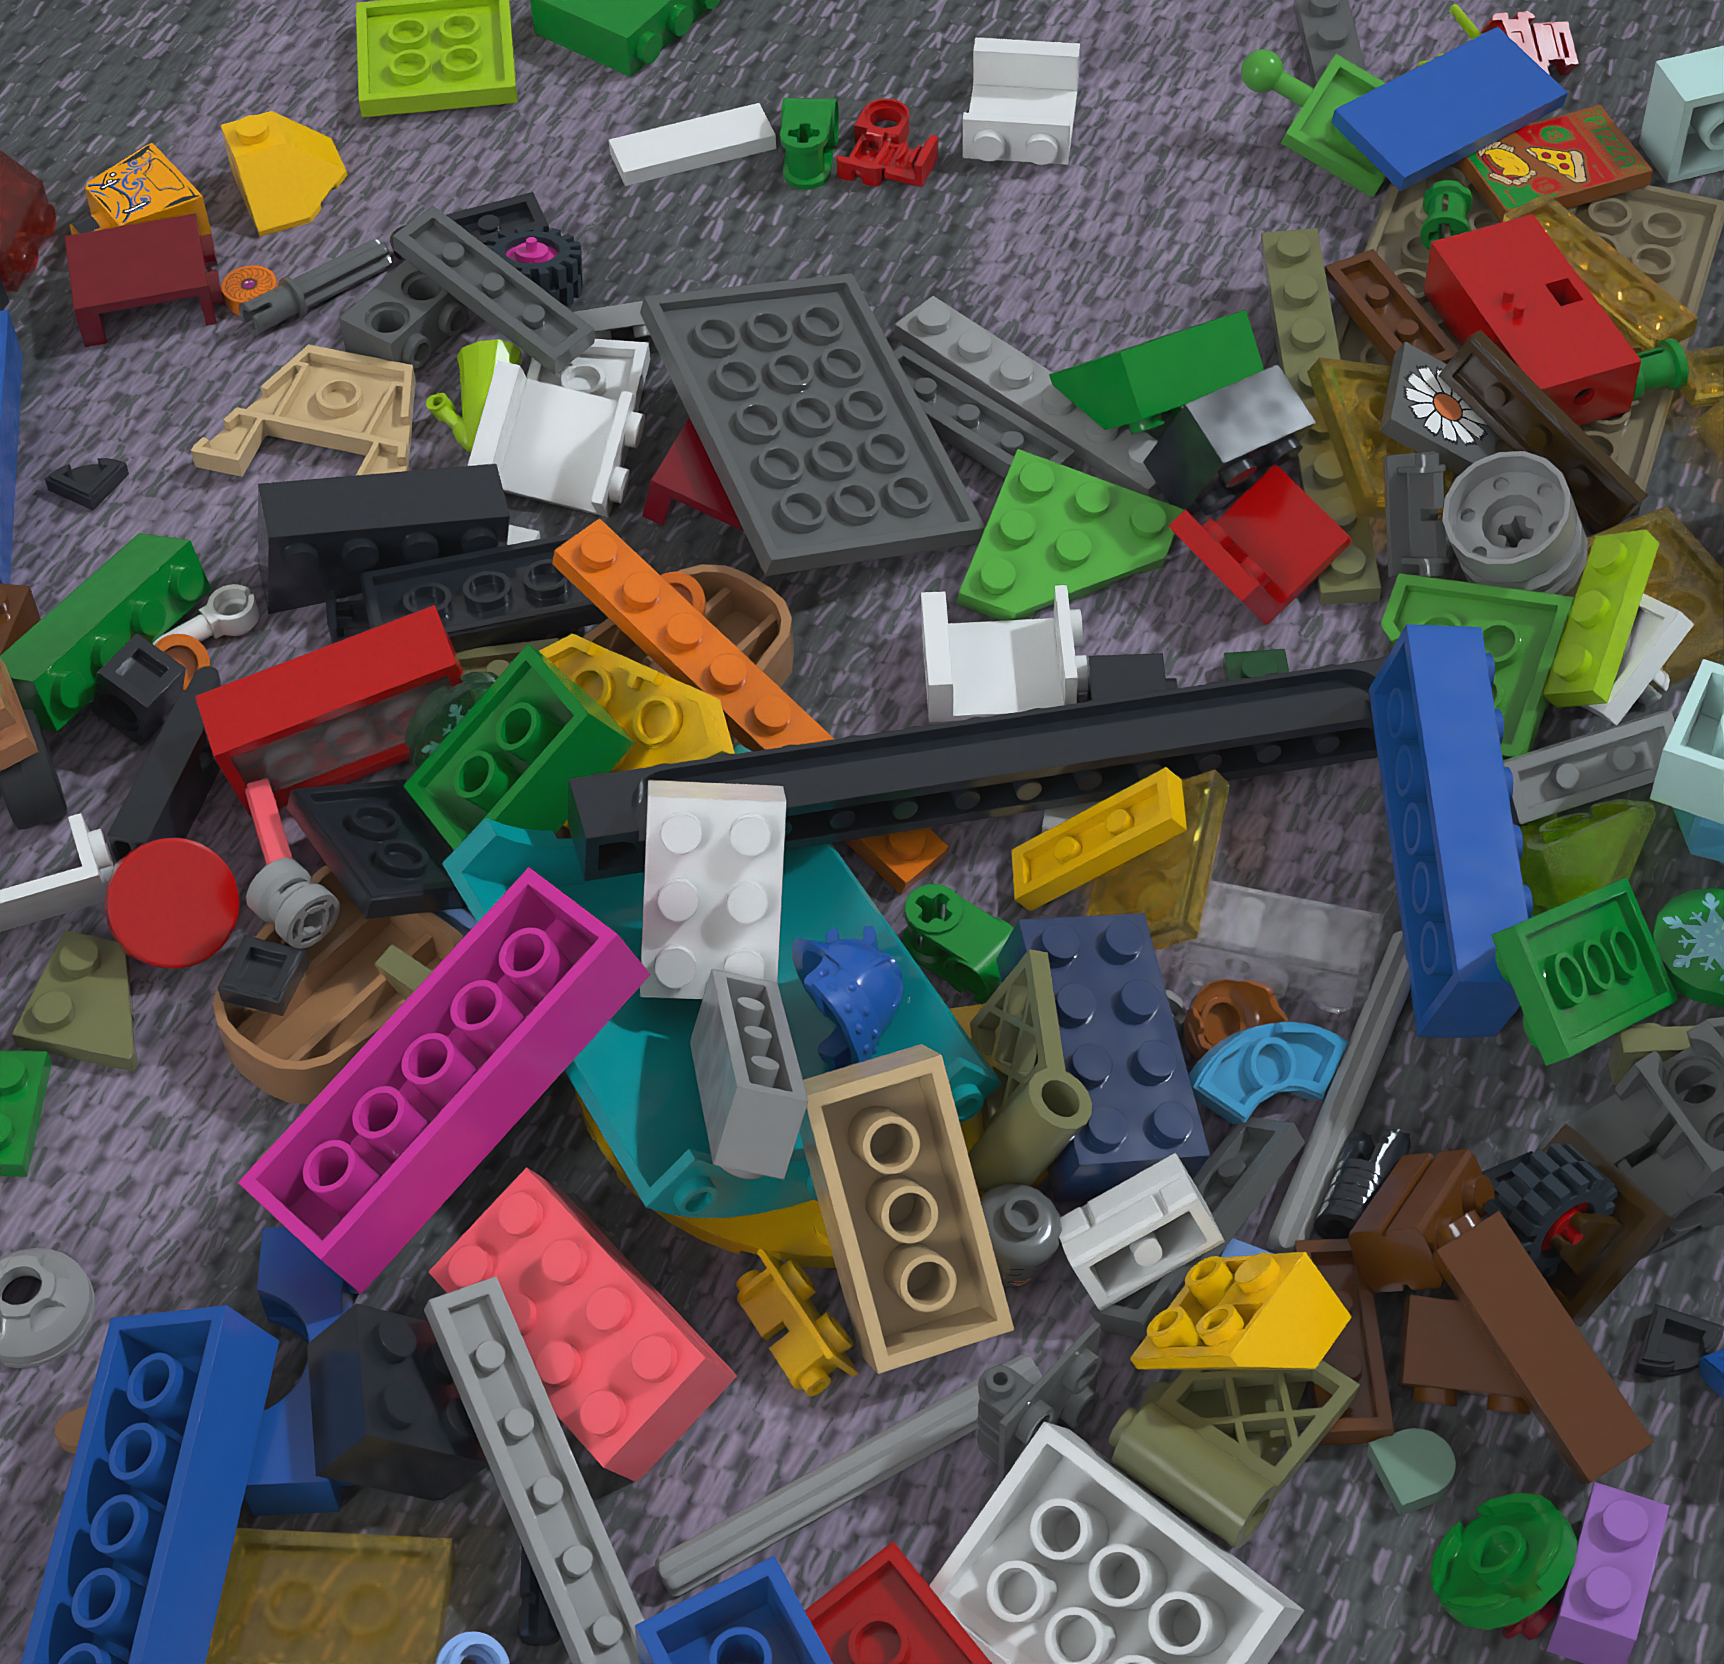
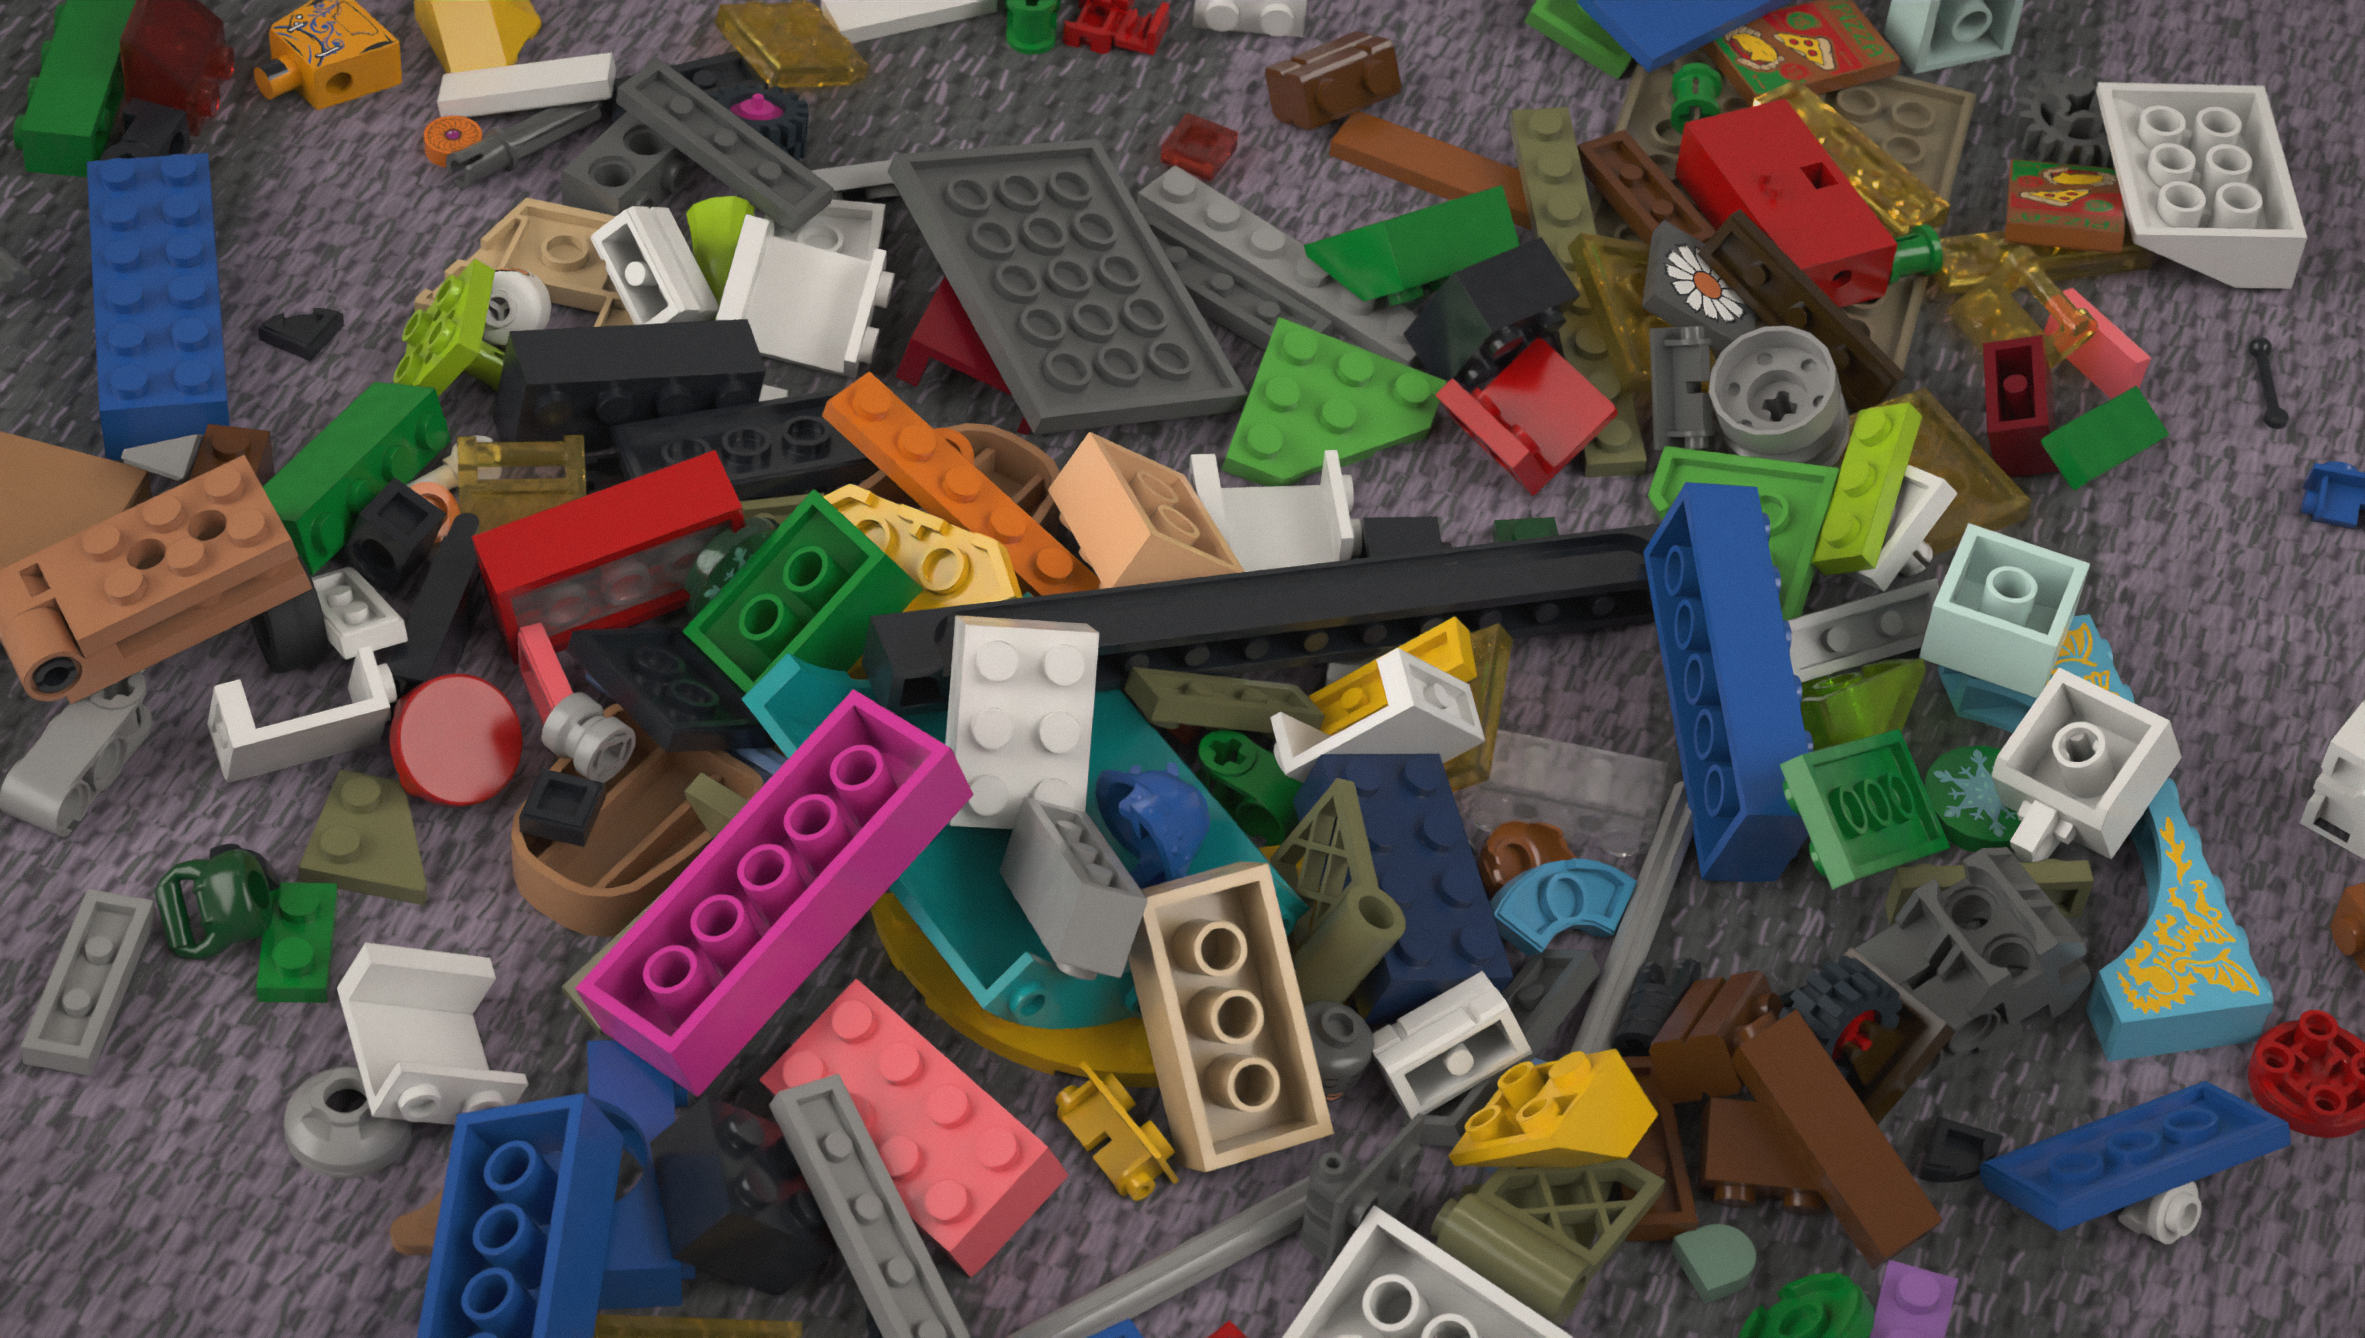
camera: 10 degrees left, 5 degrees down
(86, 770) = (356, 613): none -> white tile
(105, 1223) = (419, 1035): none -> white panel
(140, 268) = (336, 115): dark red panel -> none
(212, 485) = (450, 335): none -> lime plate
(251, 651) = (509, 500): none -> clear yellow plate
(276, 451) = (527, 302): none -> white head
(321, 235) = (527, 86): none -> white tile
(414, 413) = (654, 268): none -> white brick
(574, 186) = (791, 44): none -> clear yellow plate
(861, 664) = (1137, 518): none -> light nougat brick
(932, 856) = (1217, 701): none -> olive plate
(957, 276) = (1199, 146): none -> clear red plate
(1091, 207) = (1333, 80): none -> reddish brown brick
(1124, 874) = (1424, 716): none -> white panel
(1179, 286) = (1425, 162): none -> dark orange tile

